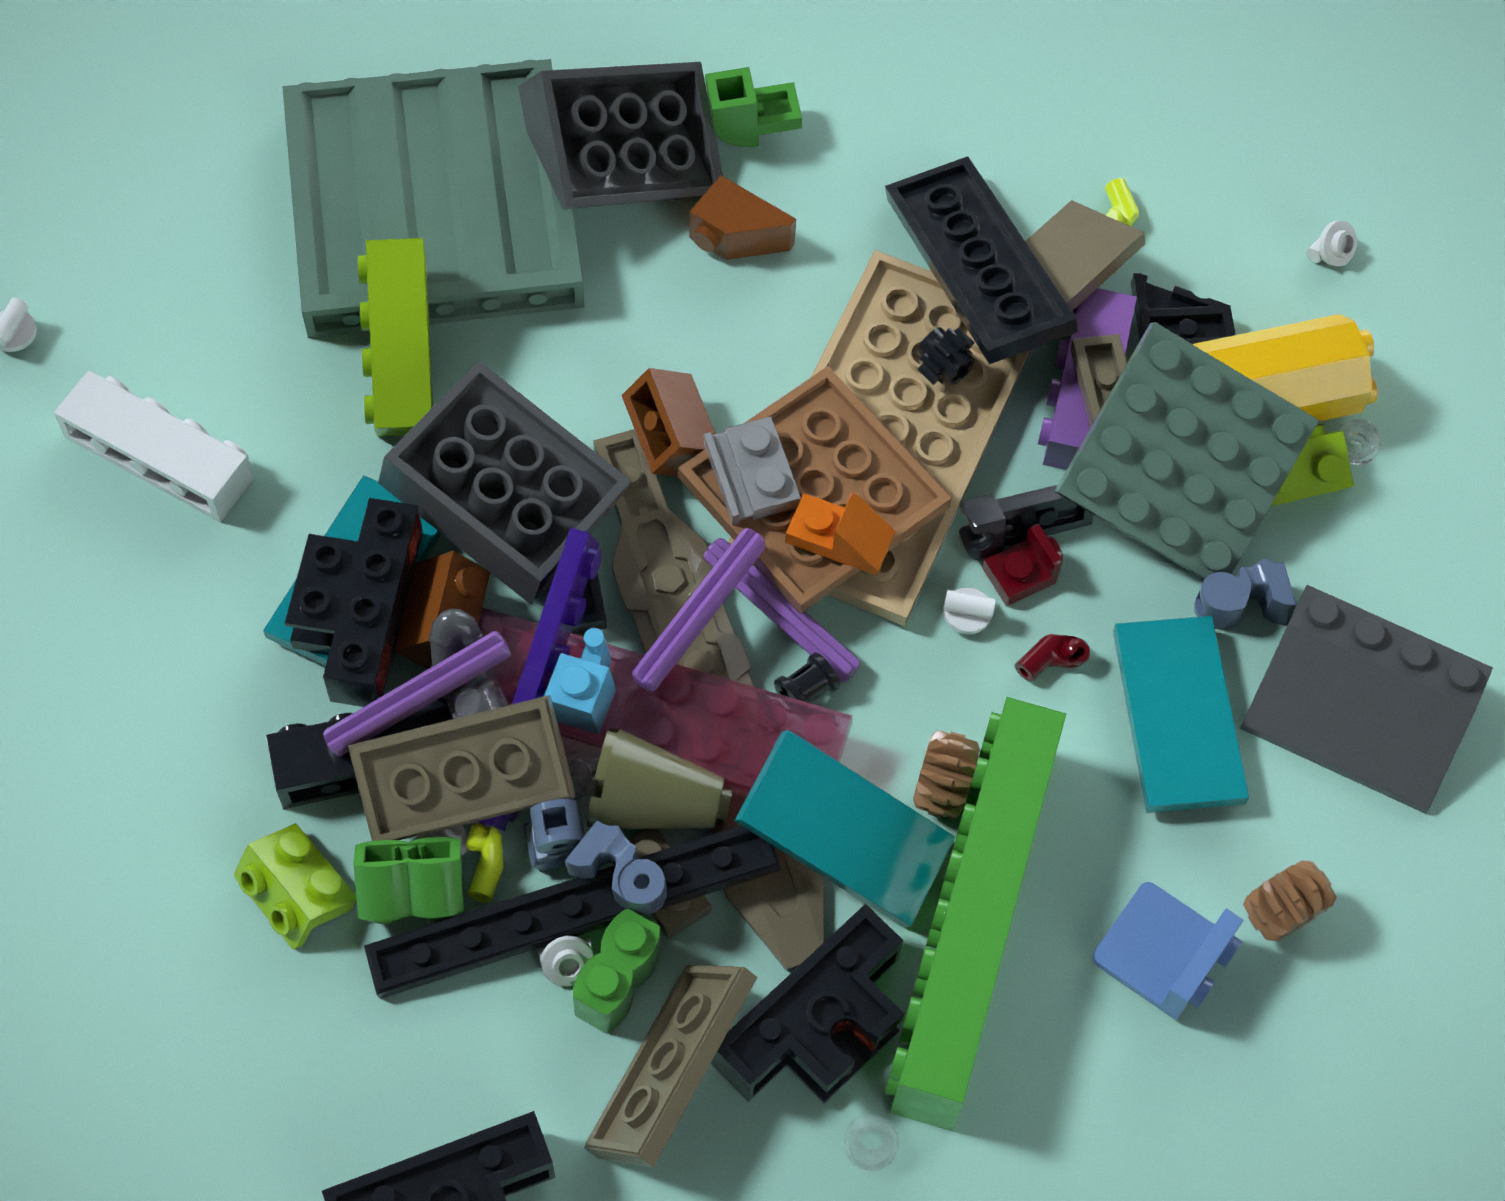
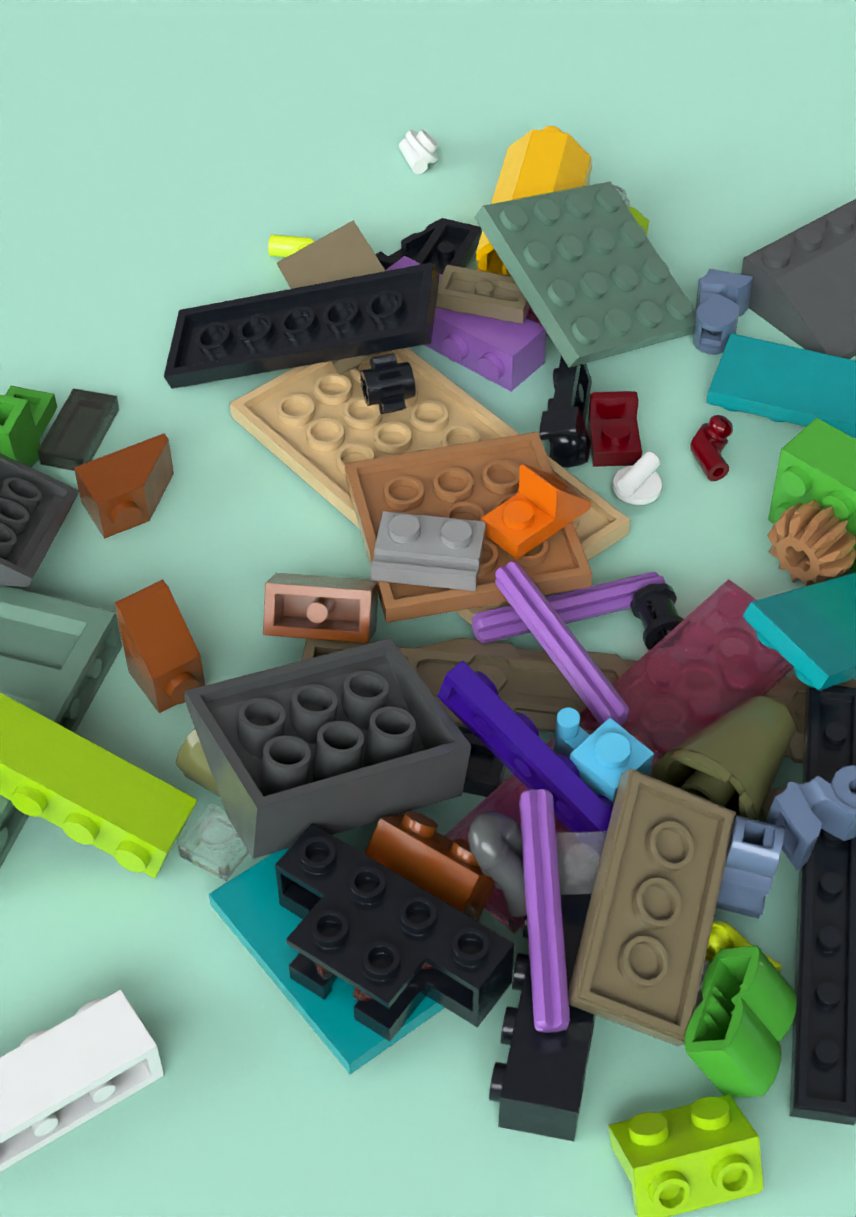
camera: 60 degrees left, 15 degrees down
(565, 330) = (159, 646): none -> dark orange slope
(793, 157) = (78, 429): none -> clear smoke tile

